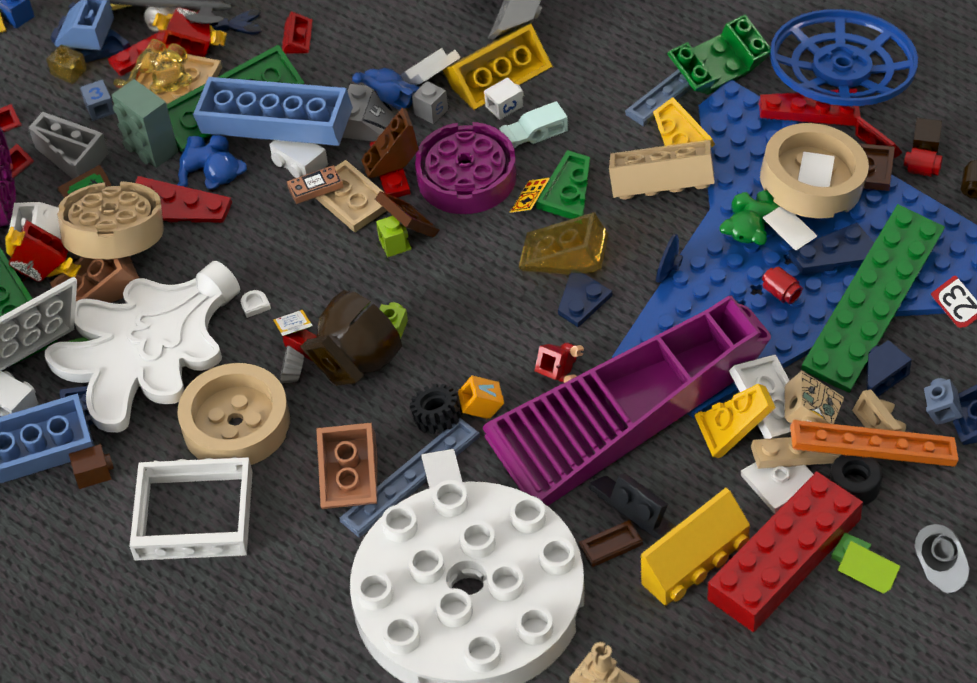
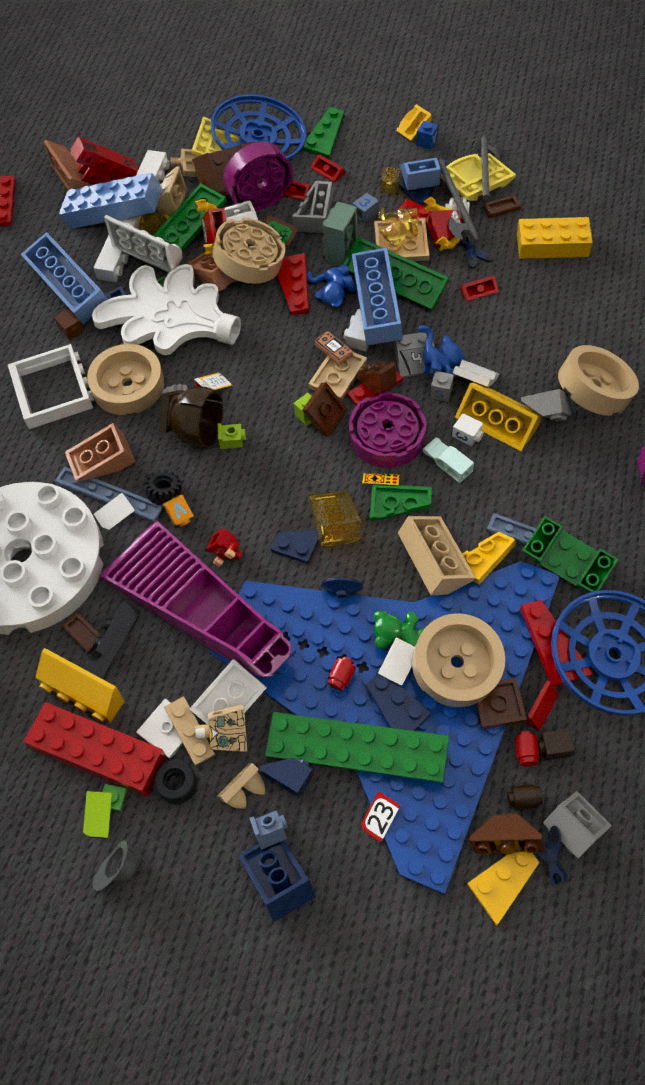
camera: 70 degrees right, 10 degrees up
(254, 303) = (227, 356): white tile -> none
(734, 419) = (199, 676): yellow wing -> none
(816, 169) = (457, 661): white sticker -> none
(873, 443) = (202, 786): orange plate -> none

